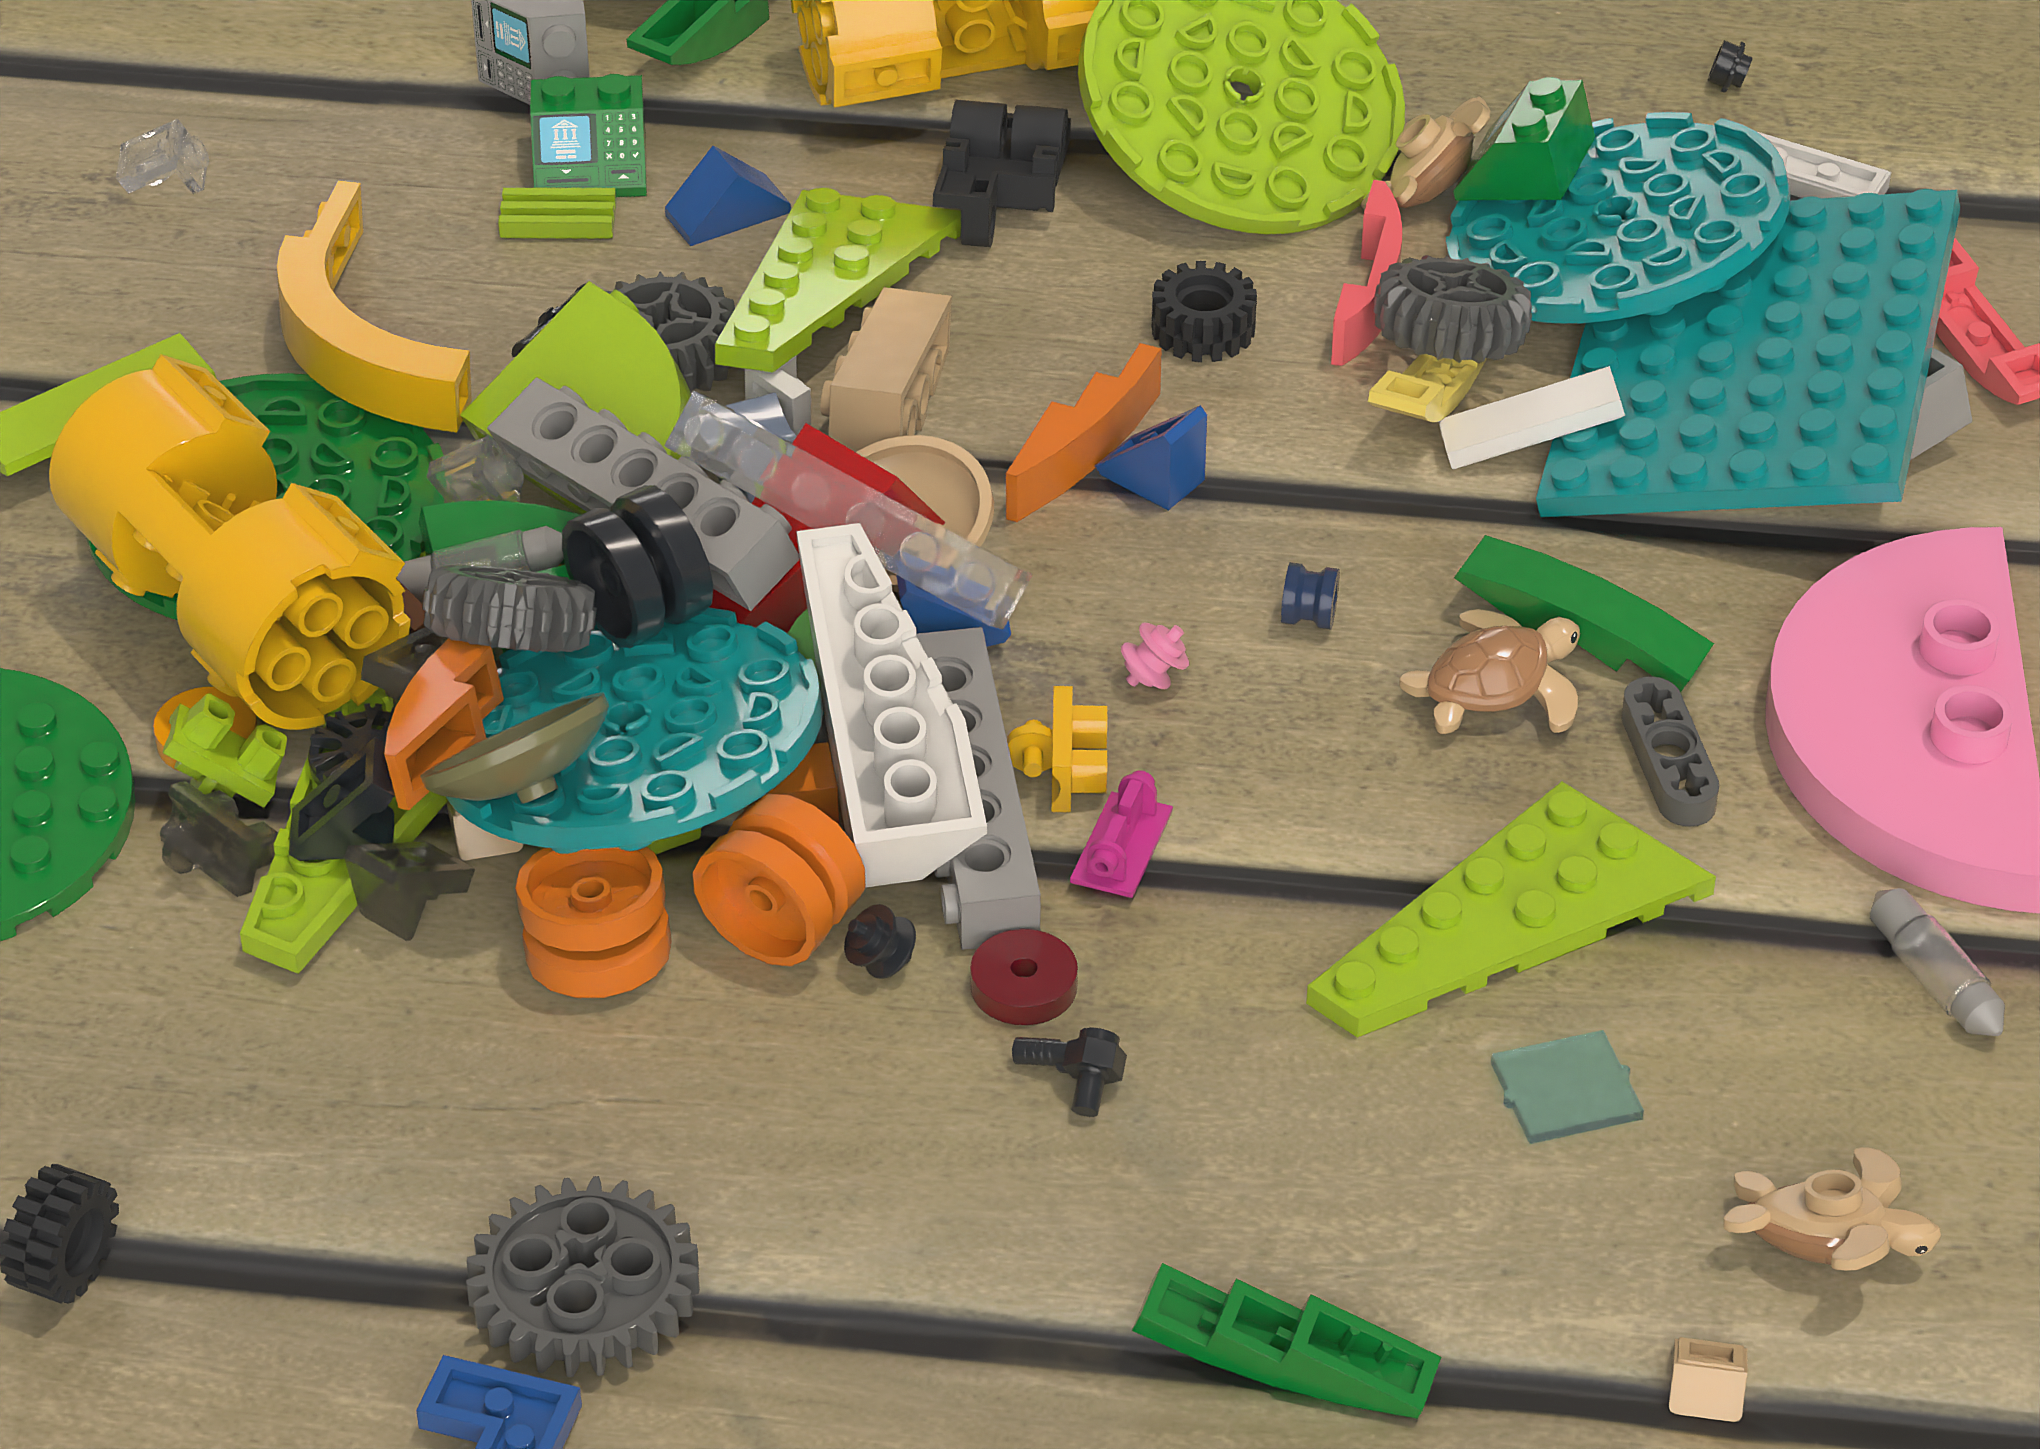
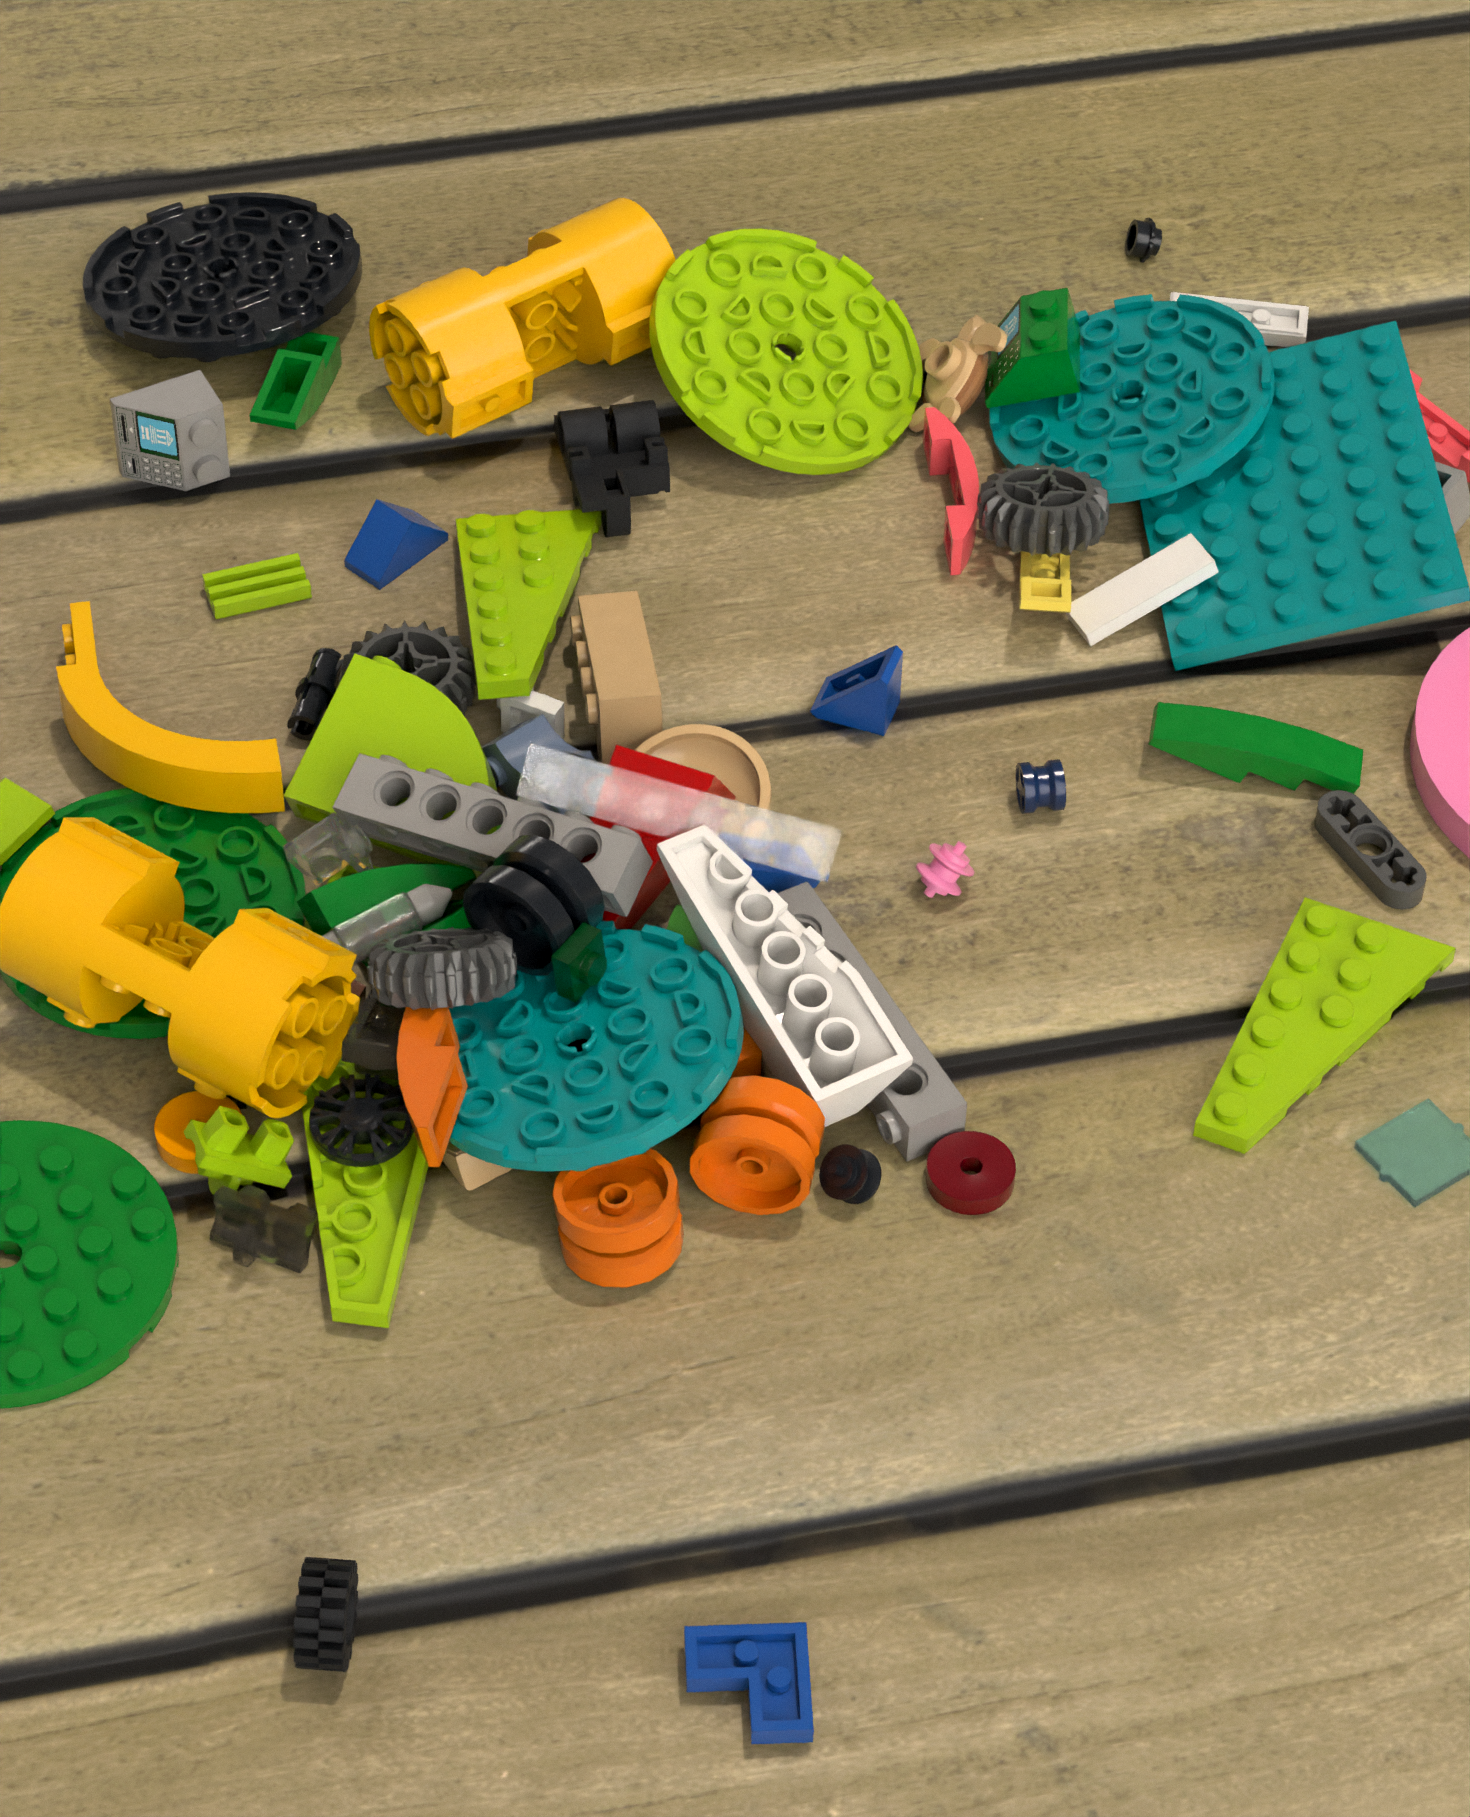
camera: 20 degrees left, 5 degrees up
(346, 808) = (376, 1176): black slope -> none
(398, 880) = (441, 1225): clear smoke slope -> none
(522, 755) = (526, 1094): olive dish -> none
(583, 1276) = (805, 1547): dark grey gear -> none
(589, 133) = (254, 509): green slope -> none
(661, 637) = (579, 962): none -> dark green plate
(1039, 748) = (905, 968): yellow hips -> none
(1077, 438) = (791, 690): orange slope -> none
(1091, 1059) = (1062, 1230): black piece -> none
(1123, 837) = (992, 1033): dark pink hinge -> none
(1203, 311) = (831, 572): black tyre -> none
(1300, 1350) = (1335, 1427): green slope -> none
(1499, 669) = (1215, 814): animal -> none

